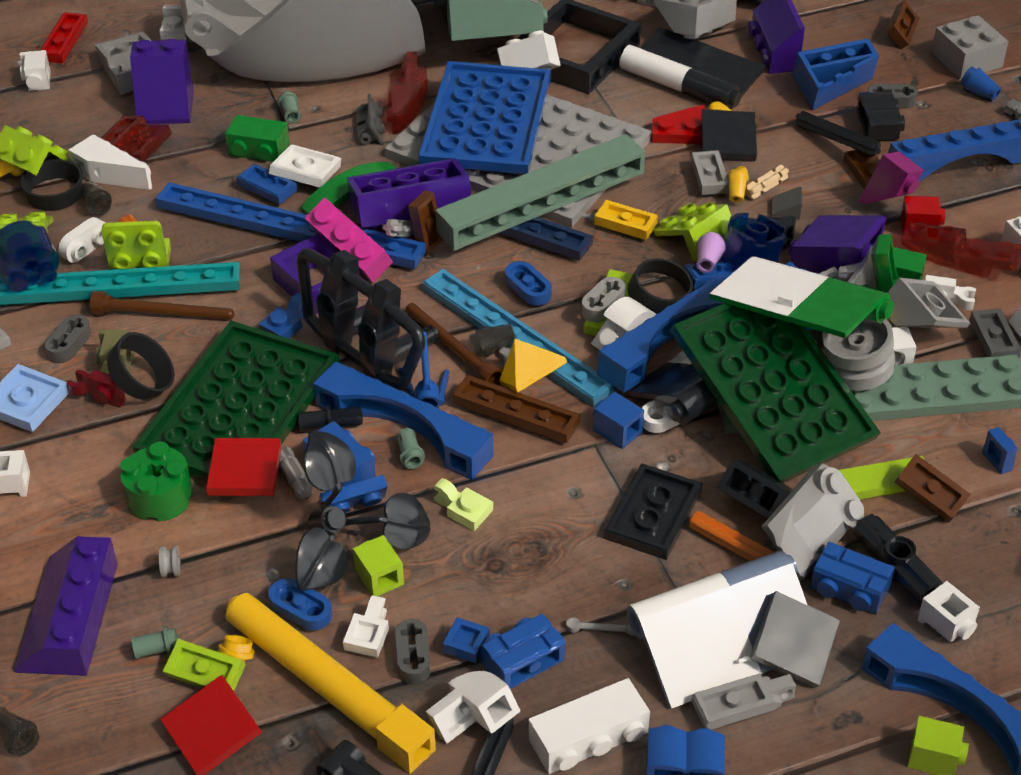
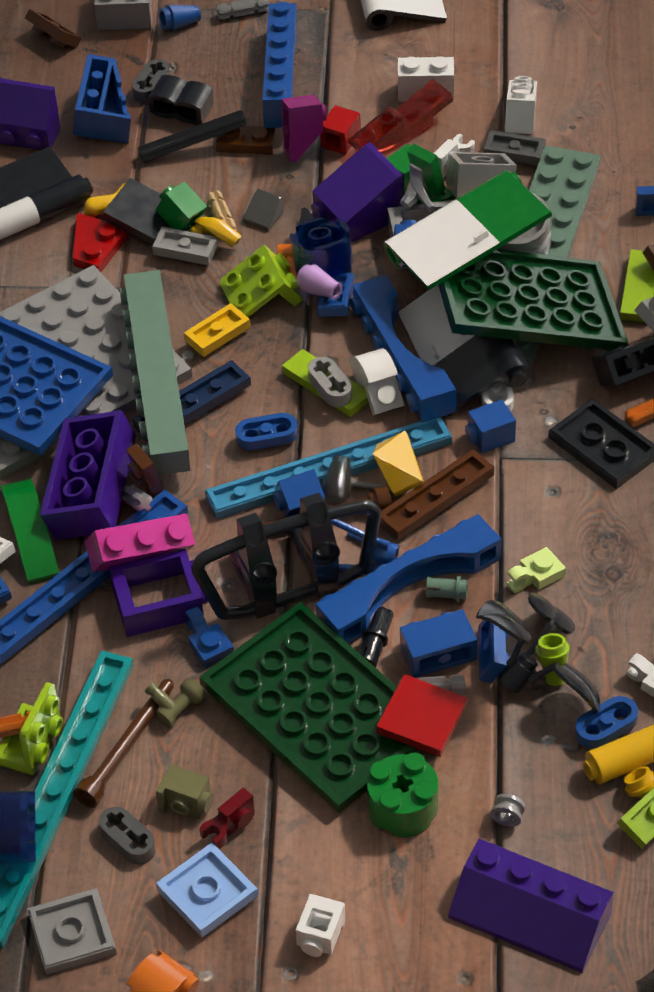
camera: 65 degrees left, 5 degrees up
(153, 354) = (235, 767): black tyre -> none
(154, 642) = (605, 835): sand green pin -> none
(201, 320) = (190, 693): none -> olive piece
(350, 532) = (552, 649): none -> lime cone
(378, 566) = (590, 649): lime brick -> none
(461, 318) = (291, 489): none -> blue brick
(661, 266) = (338, 353): black tyre -> none
(745, 149) = (180, 206): none -> green brick

